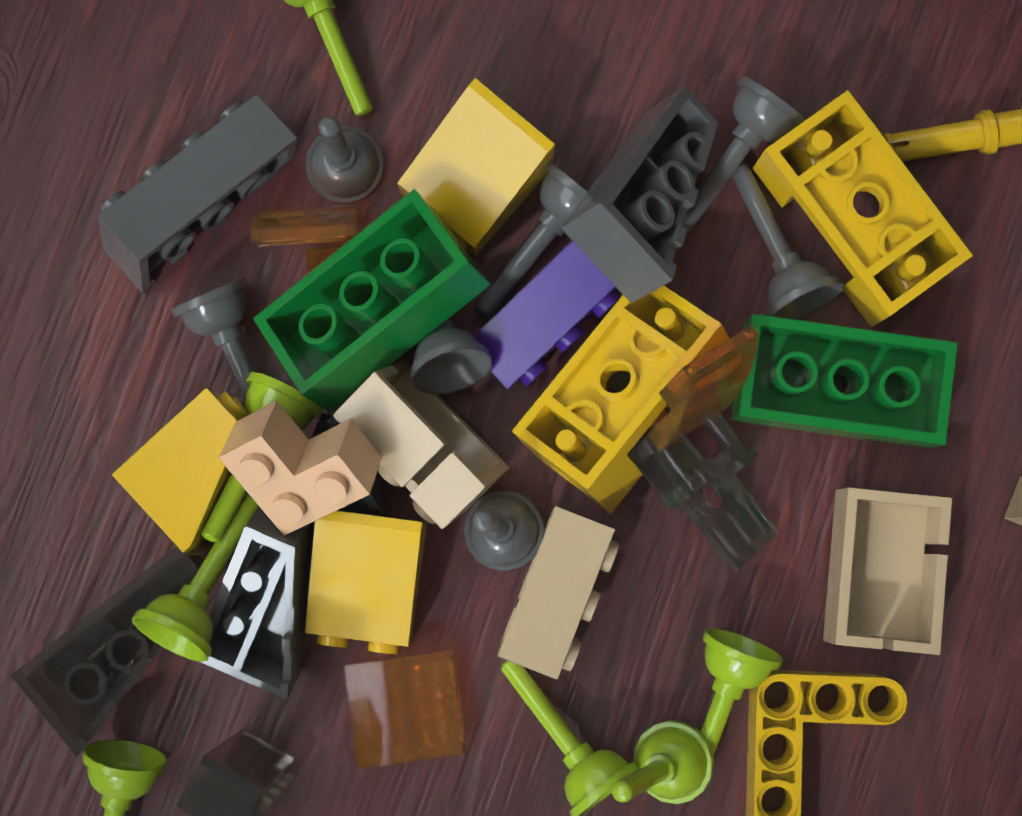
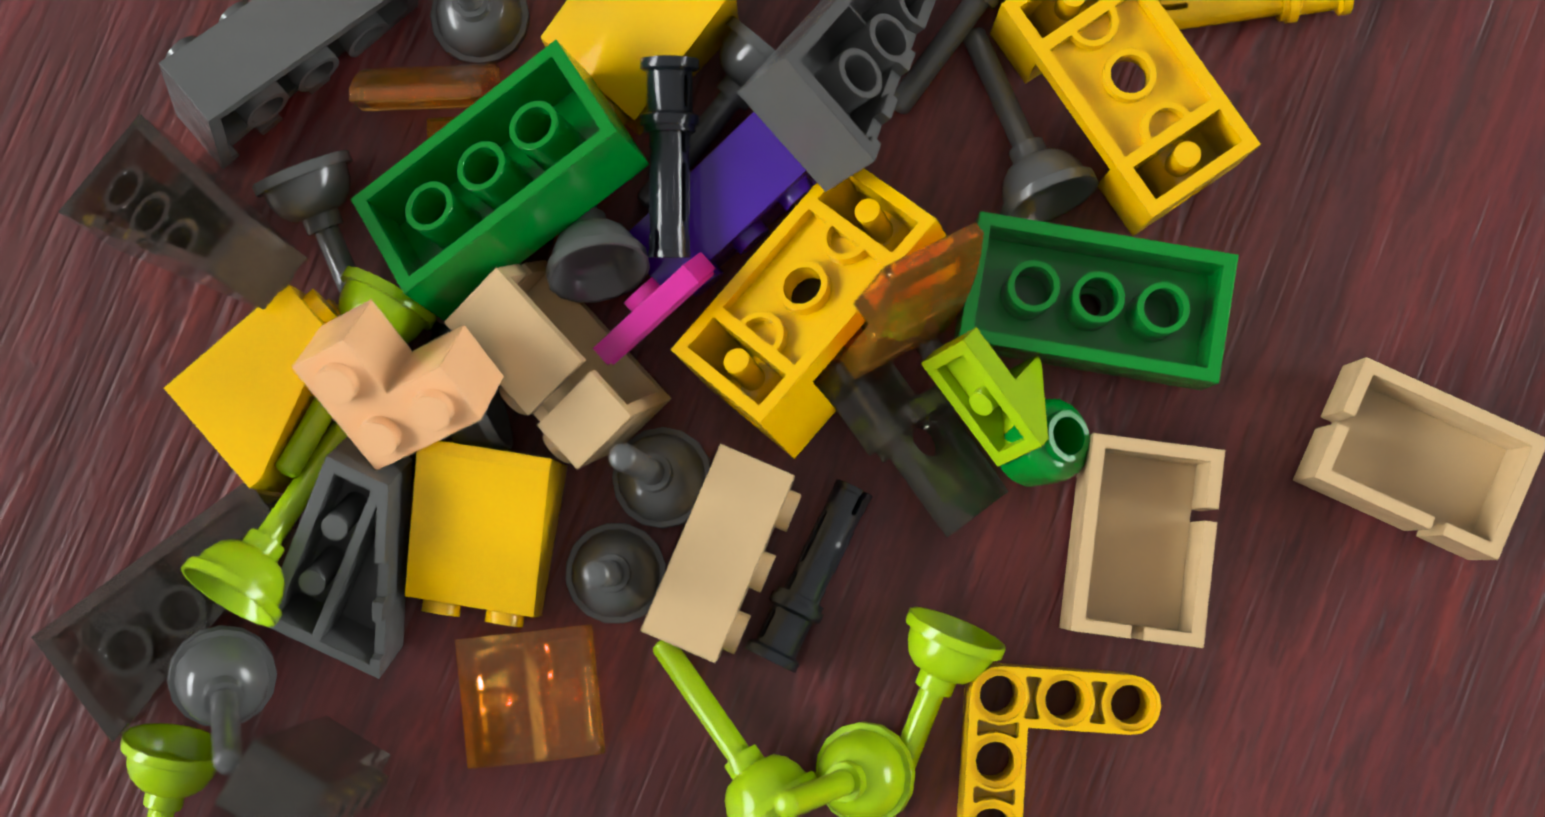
camera: 10 degrees right, 0 degrees up
(116, 335) = (179, 215): none -> clear smoke wedge
(163, 705) = (222, 681): none -> dark grey piece
(469, 608) = (615, 572): none -> dark grey piece
(495, 397) = (652, 305): none -> dark pink plate
(505, 253) = (669, 127): none -> black pin
(616, 627) = (798, 602): none -> black pin
(769, 464) = (990, 395): none -> lime slope
(806, 495) = (1061, 454): none -> green head

